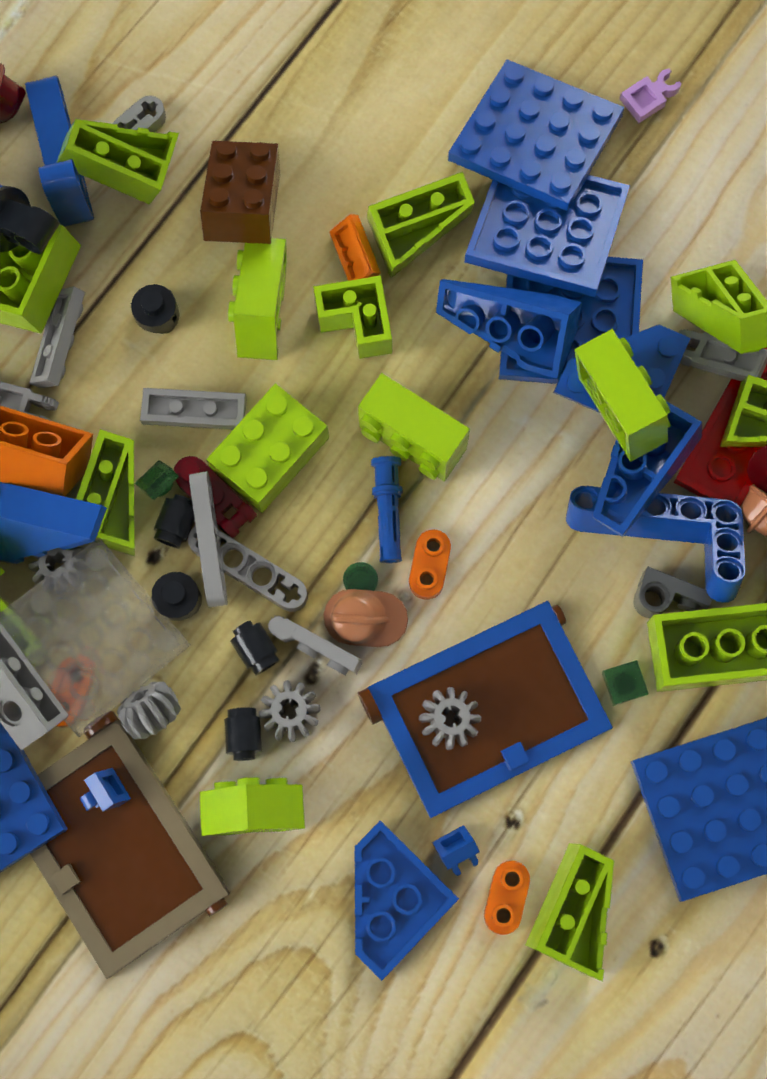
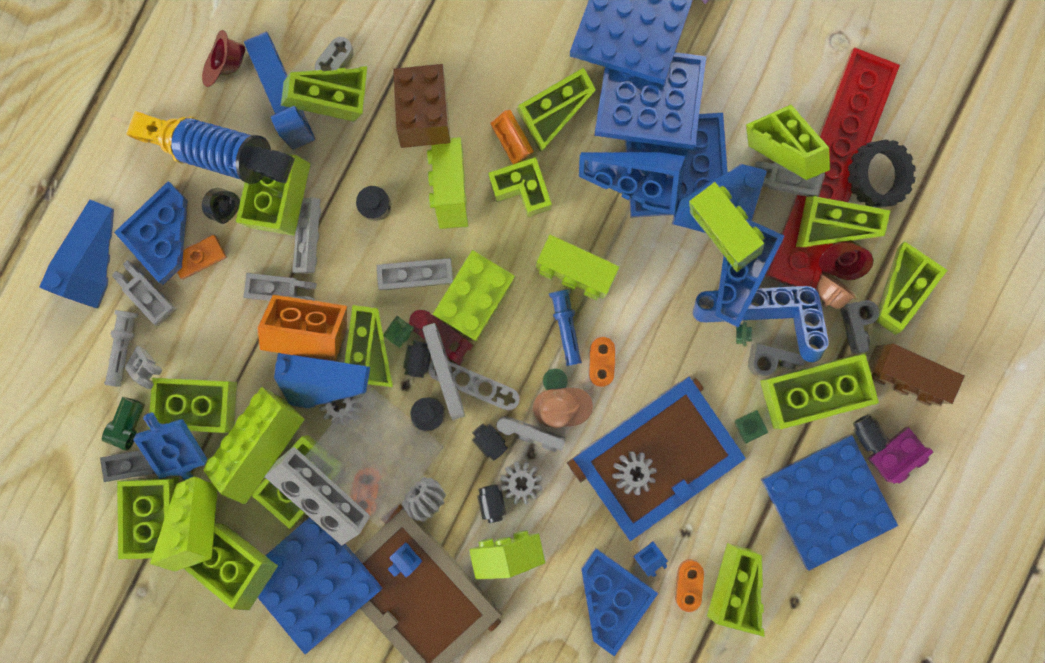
camera: 10 degrees left, 10 degrees up
(632, 554) = (743, 334): none -> clear green plate

